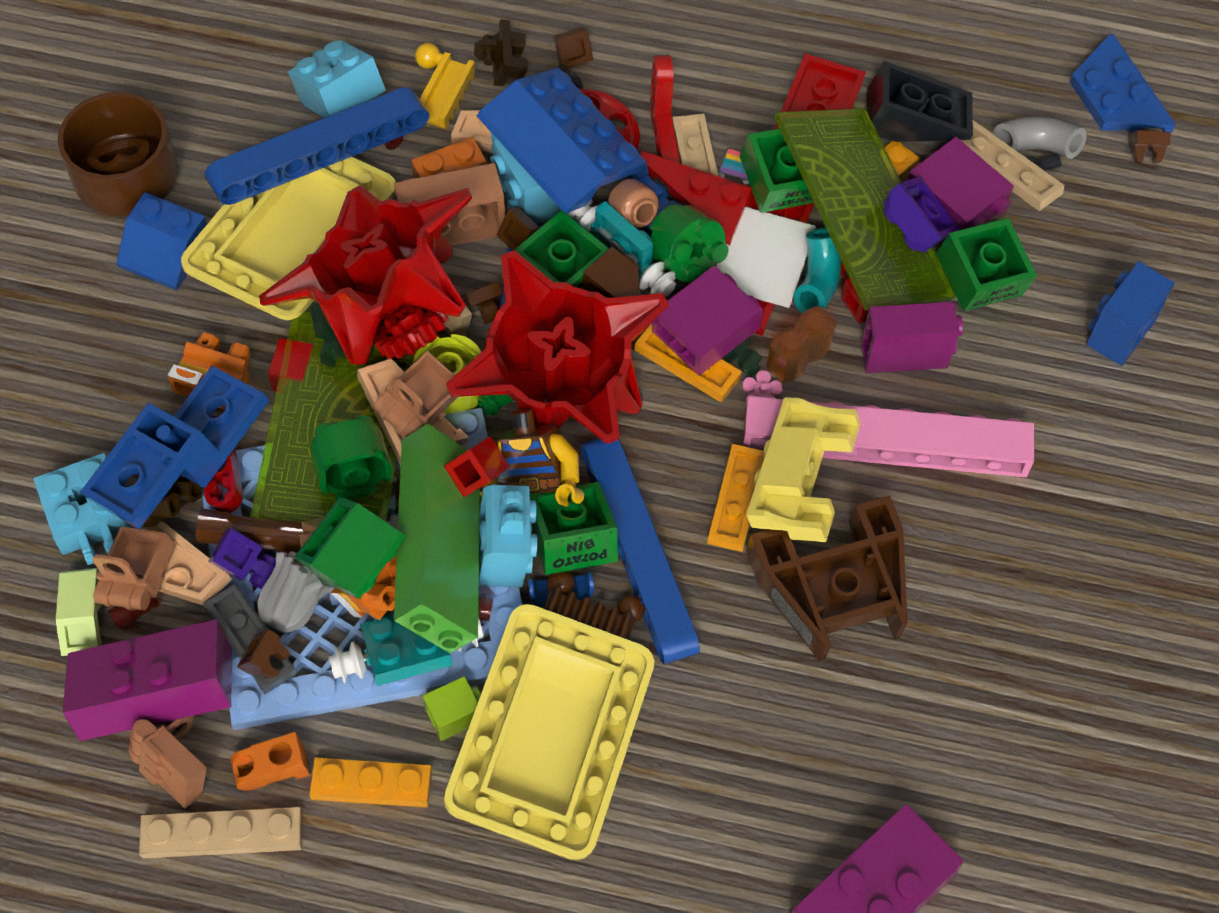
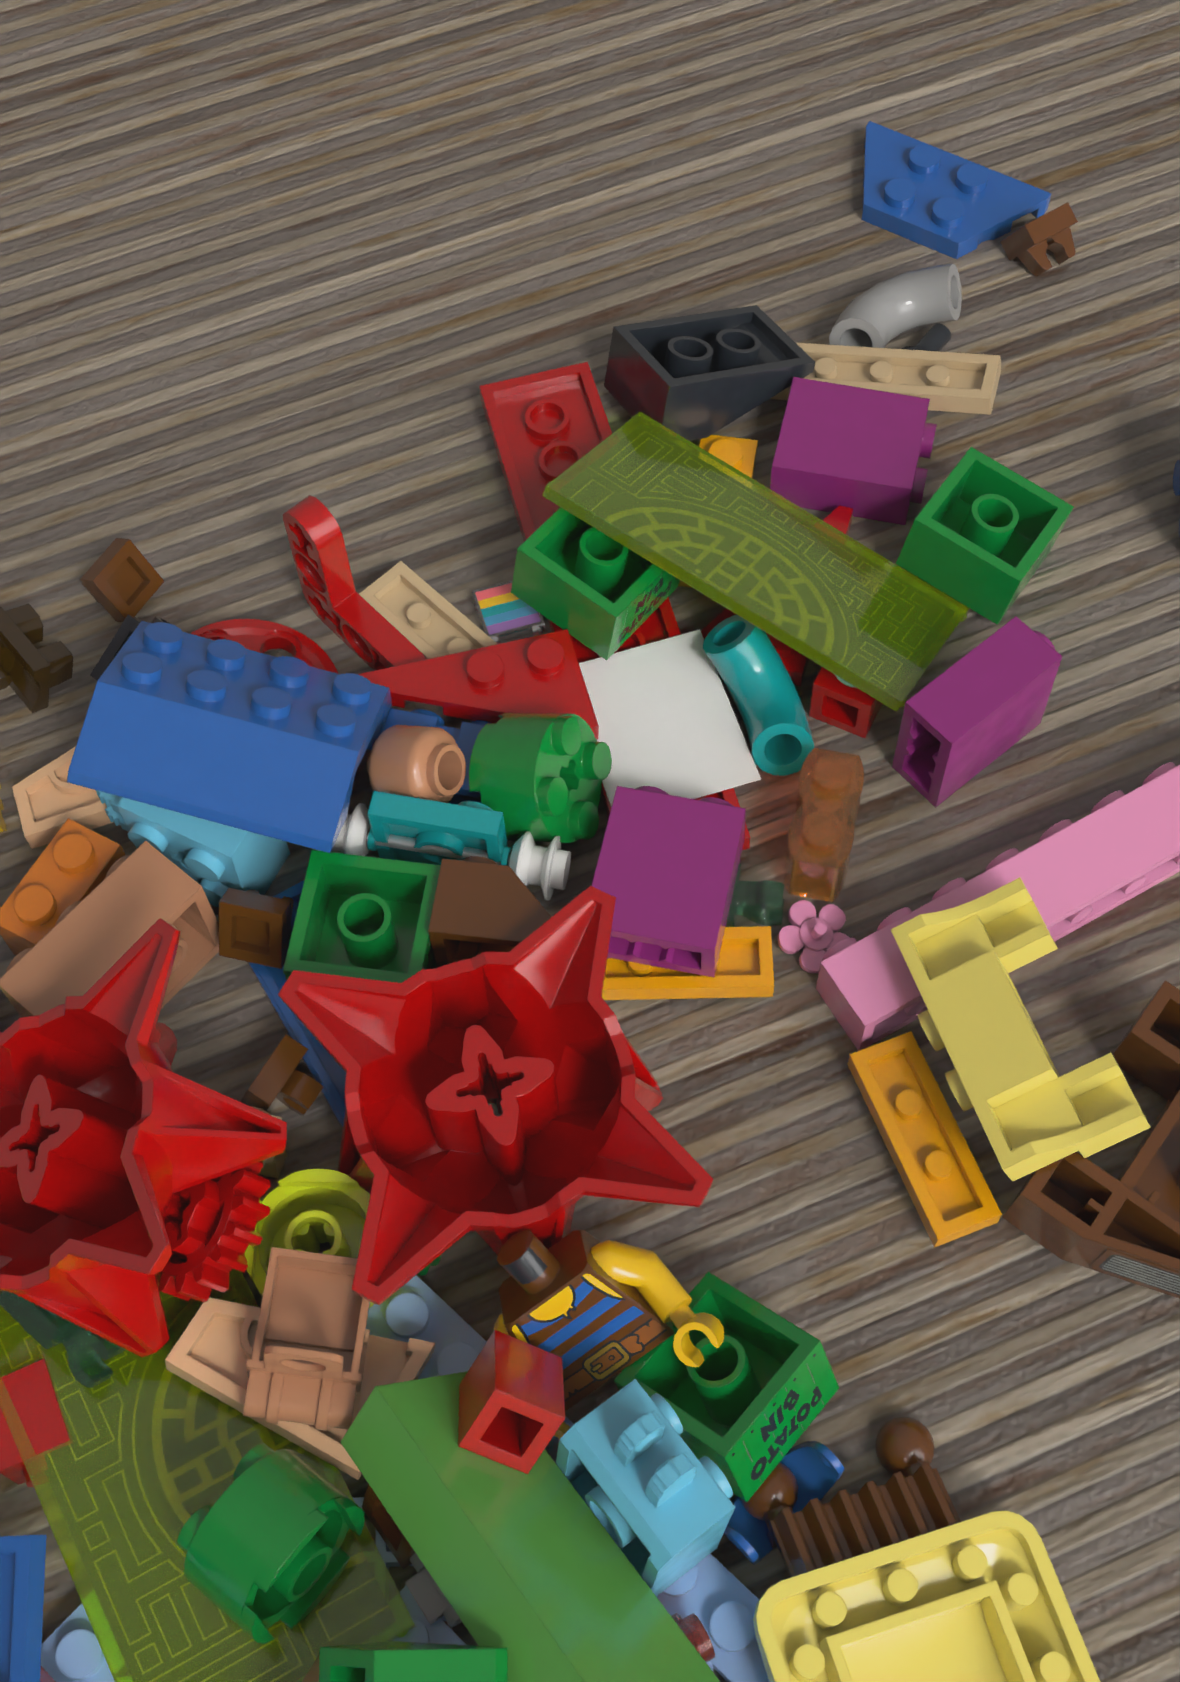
camera: 30 degrees left, 0 degrees up
(642, 552) = (866, 1346): blue beam -> none
(918, 214) = (846, 522): dark purple slope -> none

